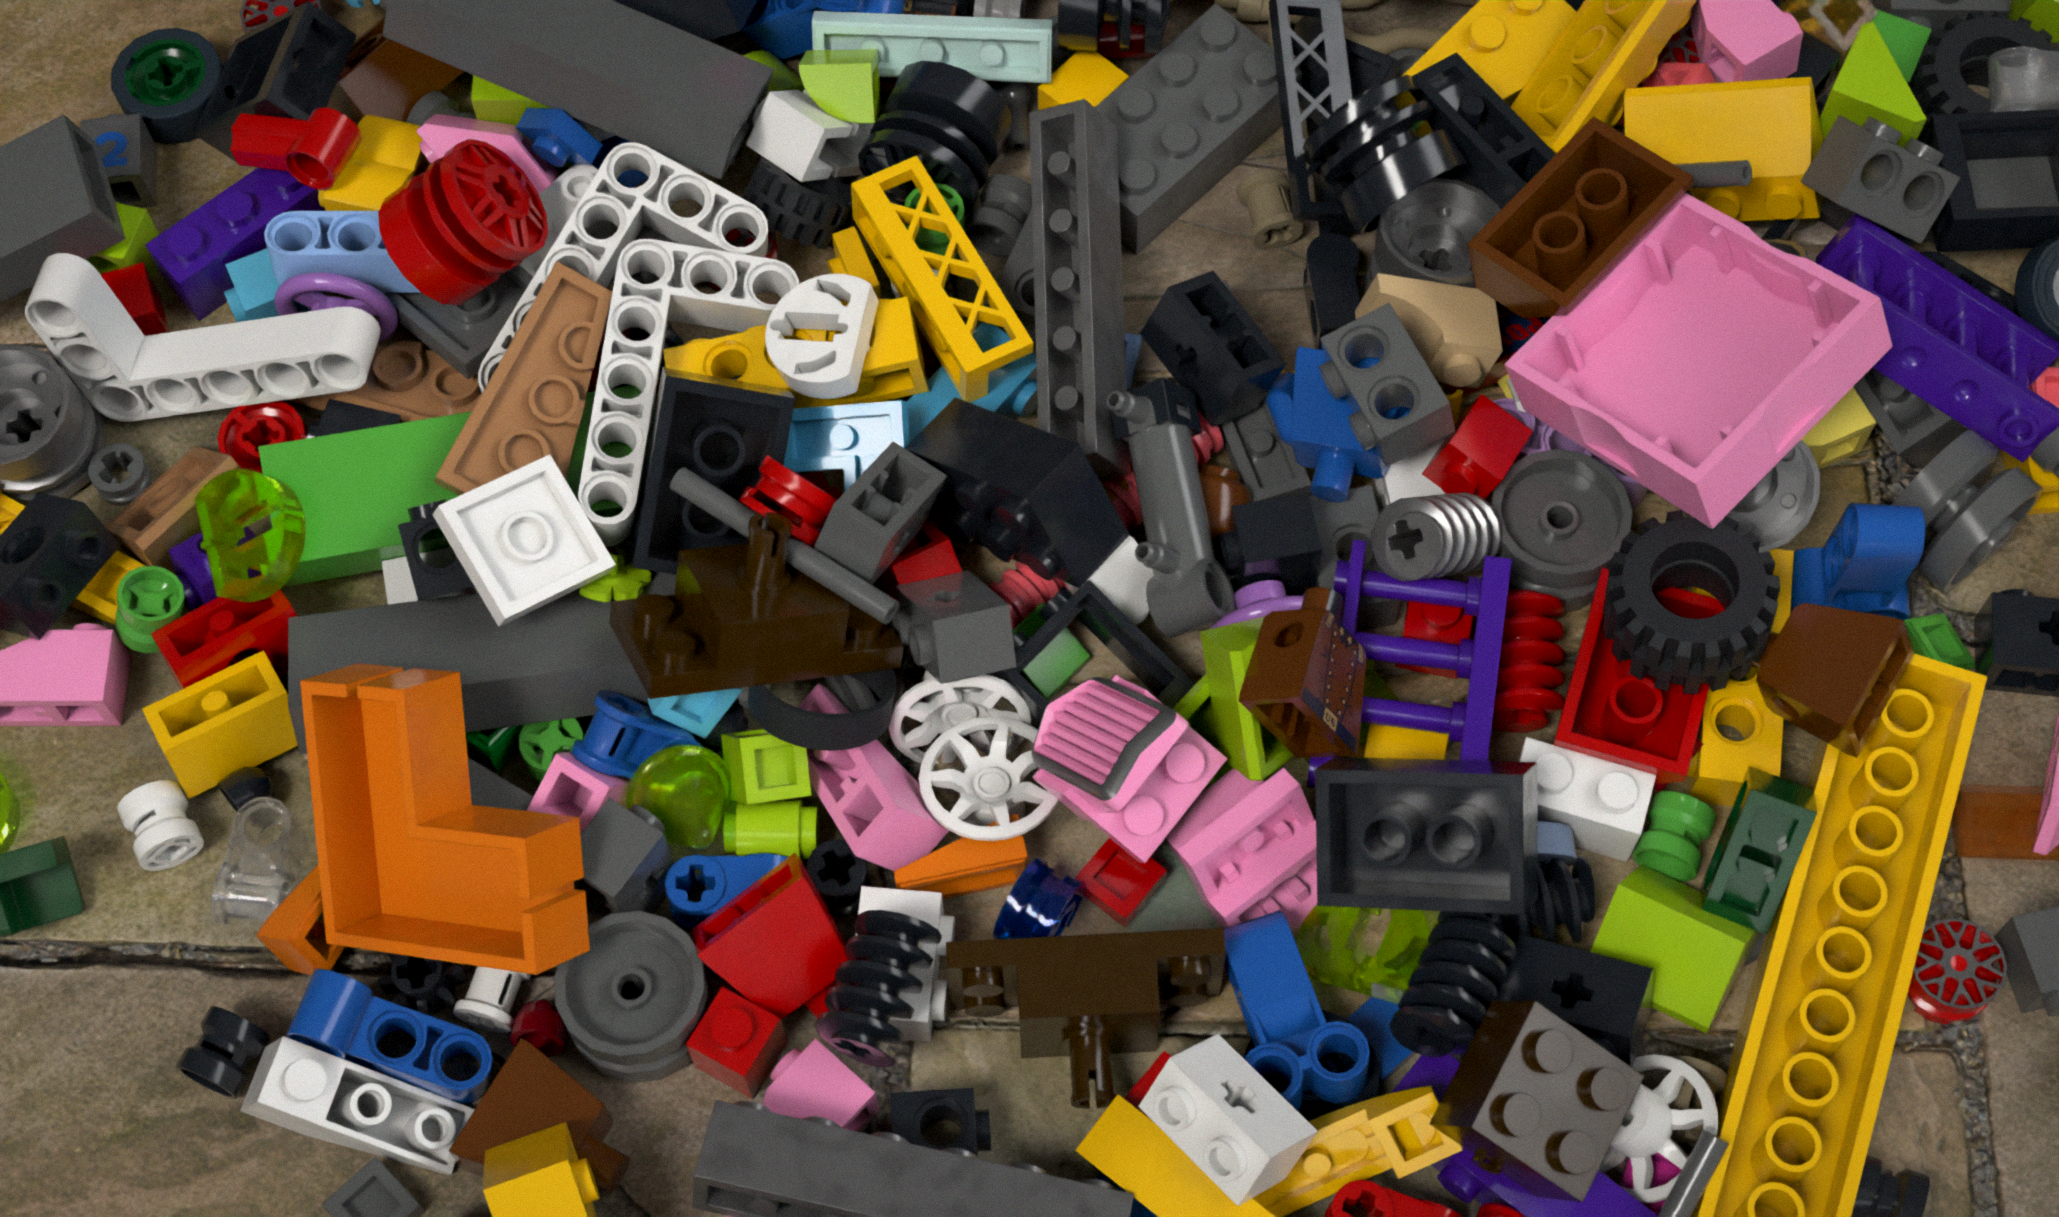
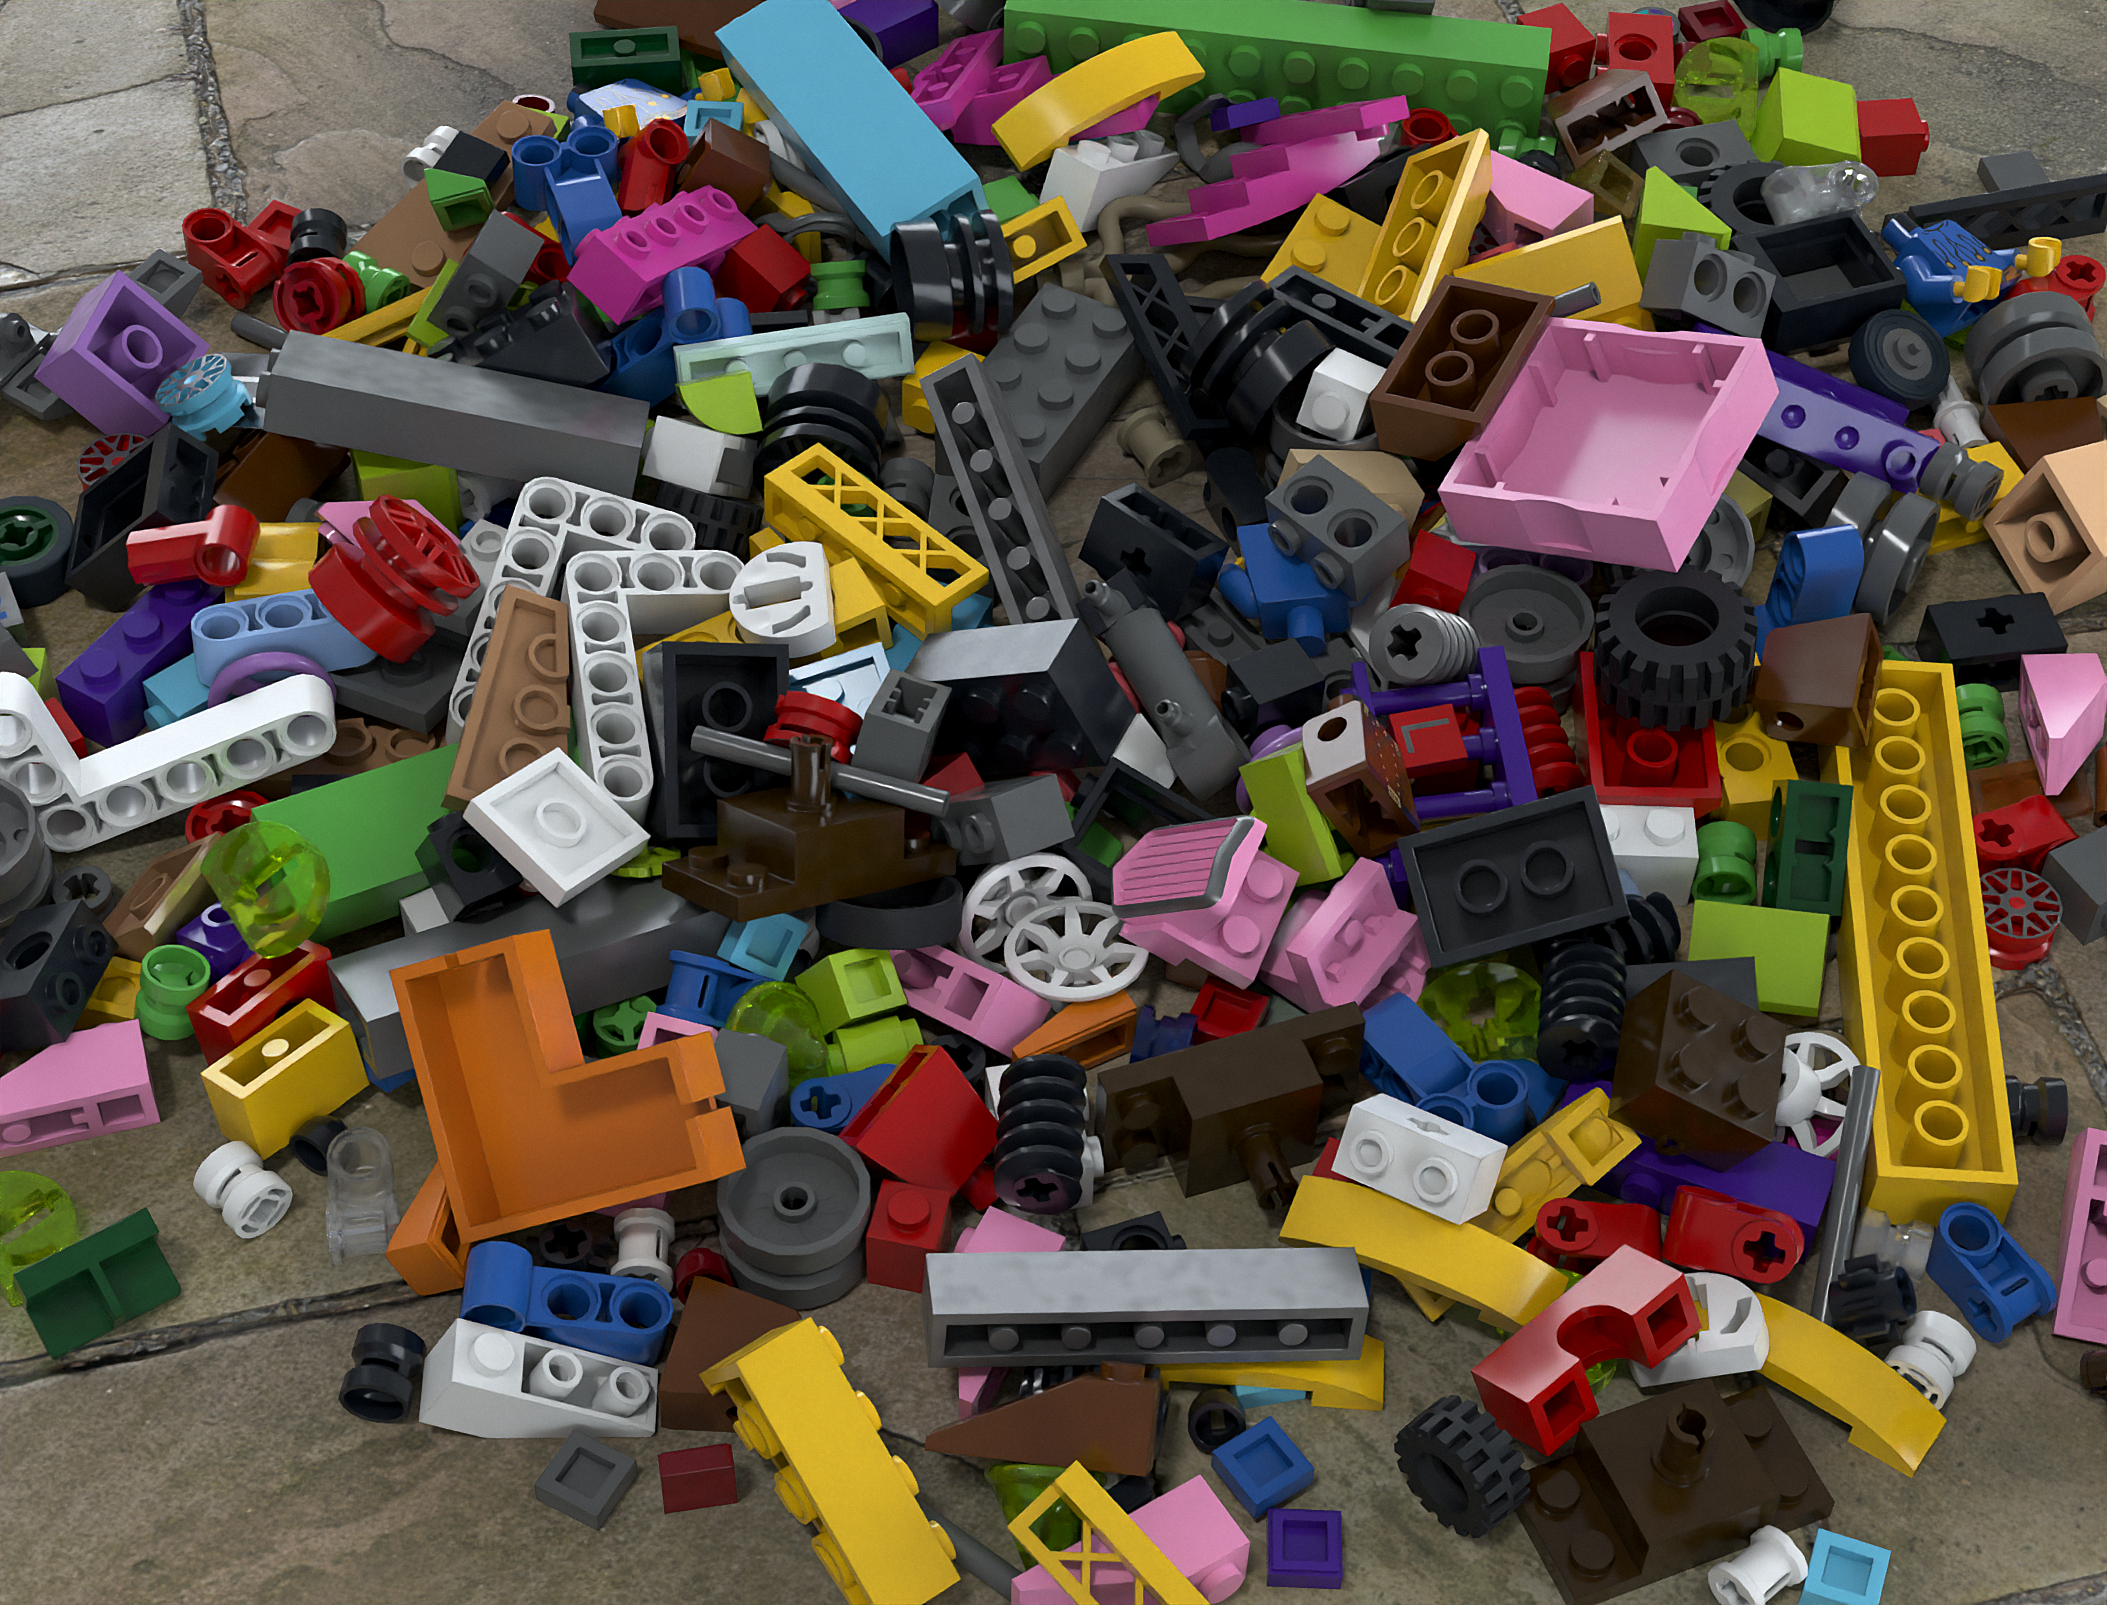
camera: 20 degrees left, 15 degrees down
(558, 137) = (456, 498): blue plate -> none
(1401, 645) = (1429, 740): none -> red tile
(1451, 218) = (1340, 396): none -> white brick
(1991, 886) = (2020, 835): none -> red piece
(1998, 740) = (1982, 726): none -> bright green wheel

